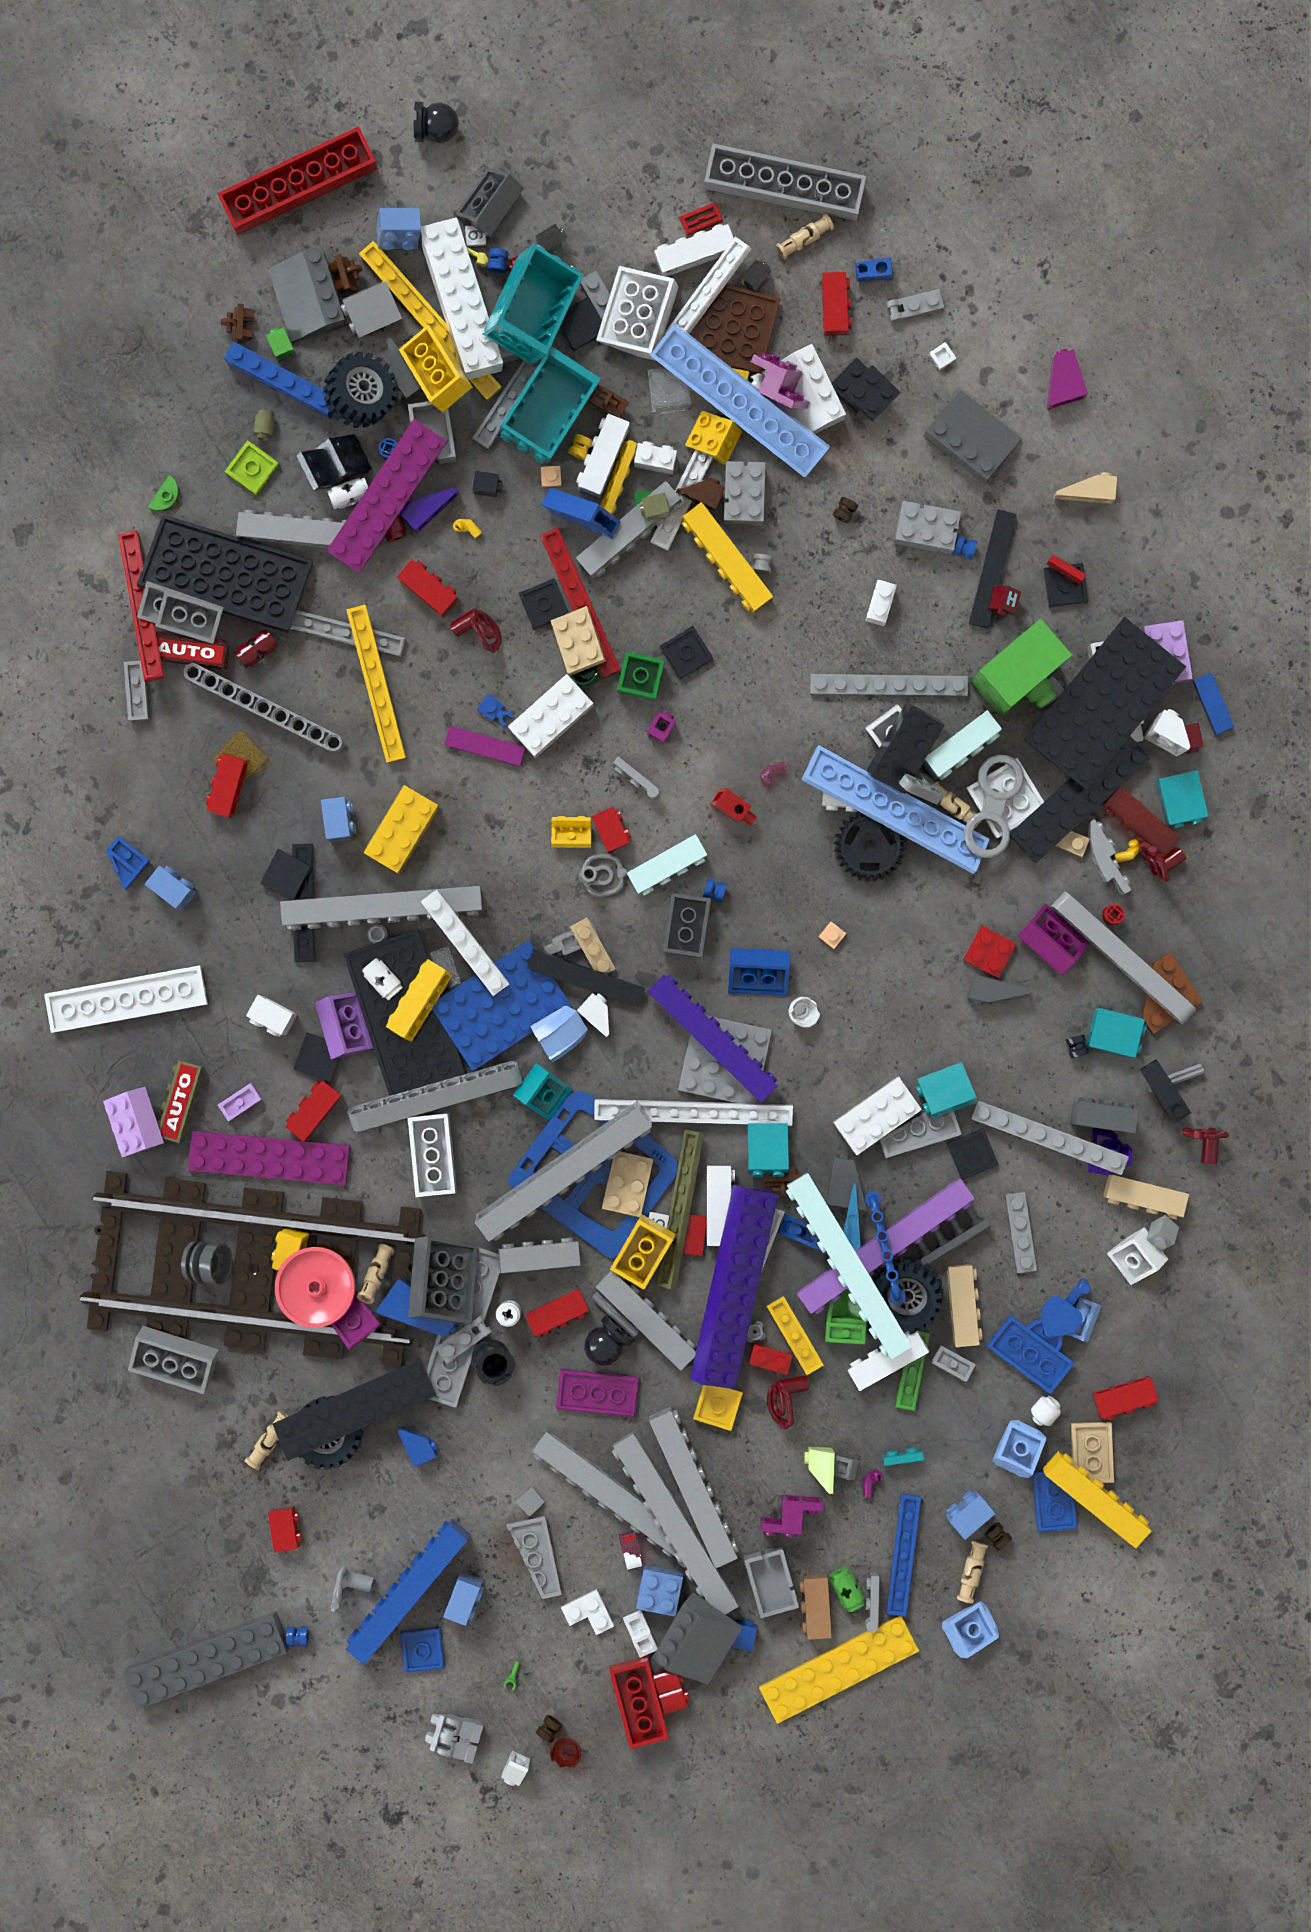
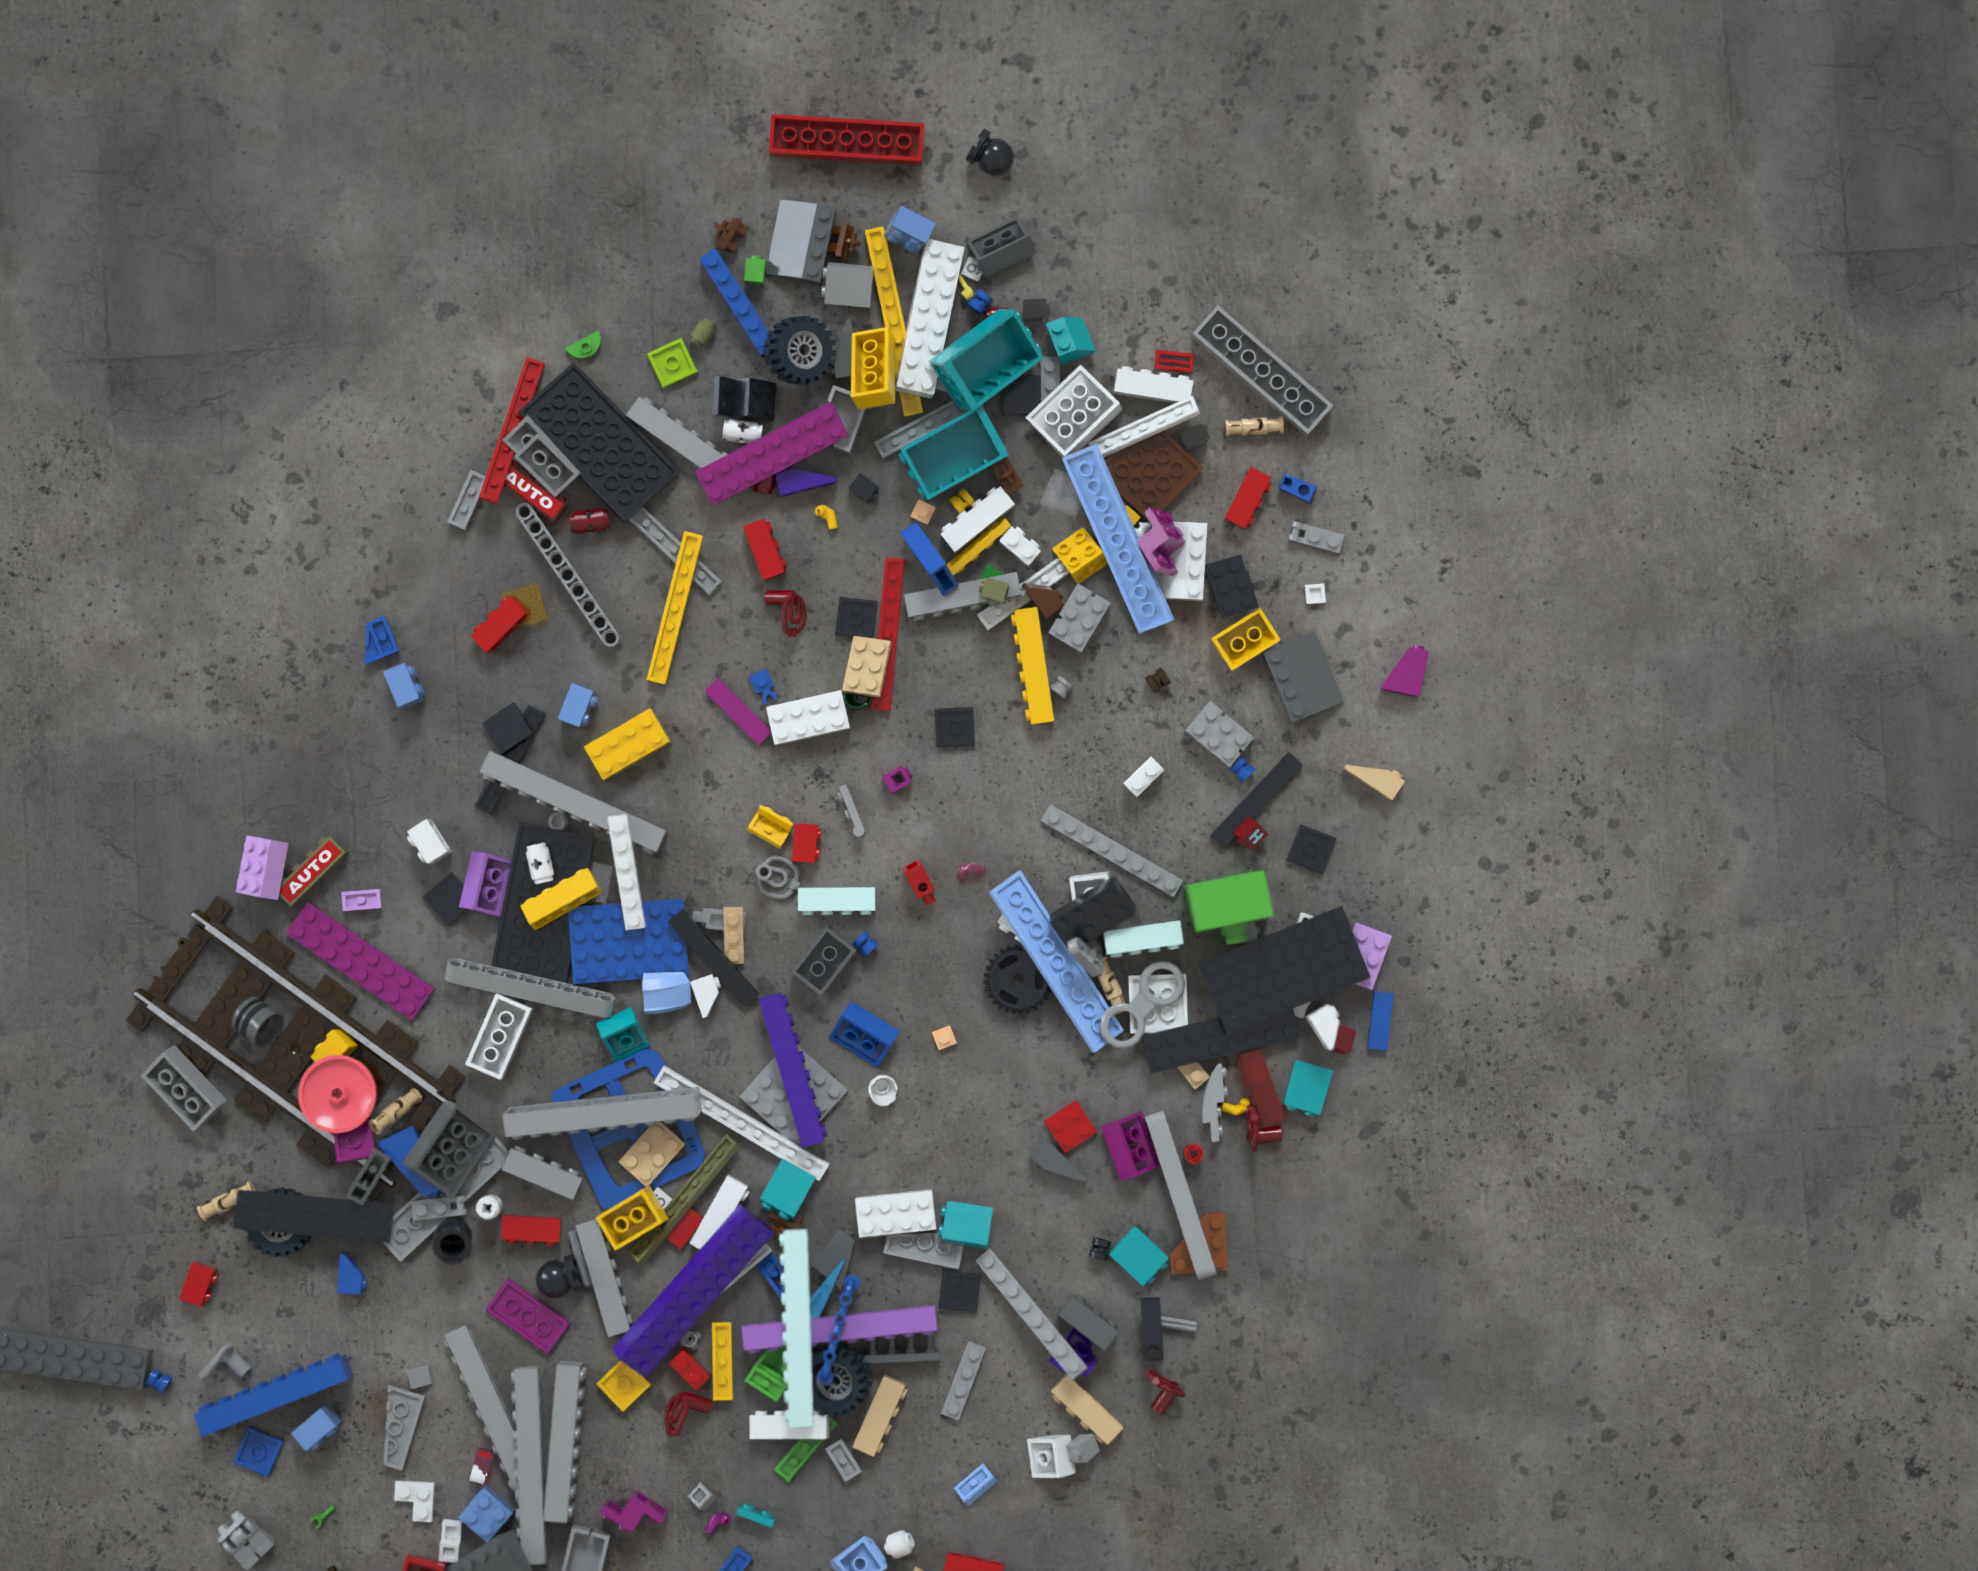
camera: 25 degrees right, 0 degrees up
(126, 999) = (313, 758): white plate -> none
(313, 1110) = (419, 941): red brick -> none
(384, 445) = (792, 414): blue wheel -> none
(384, 1346) = (368, 1176): none -> dark grey slope
(596, 249) = (1070, 339): none -> teal slope
(640, 676) = (903, 726): green brick -> none
(821, 1465) = (682, 1483): yellowish green slope -> none
(903, 429) = (1245, 639): none -> yellow slope
(1037, 1352) = (922, 1484): blue plate -> none
(1066, 569) = (1318, 838): red tile -> none

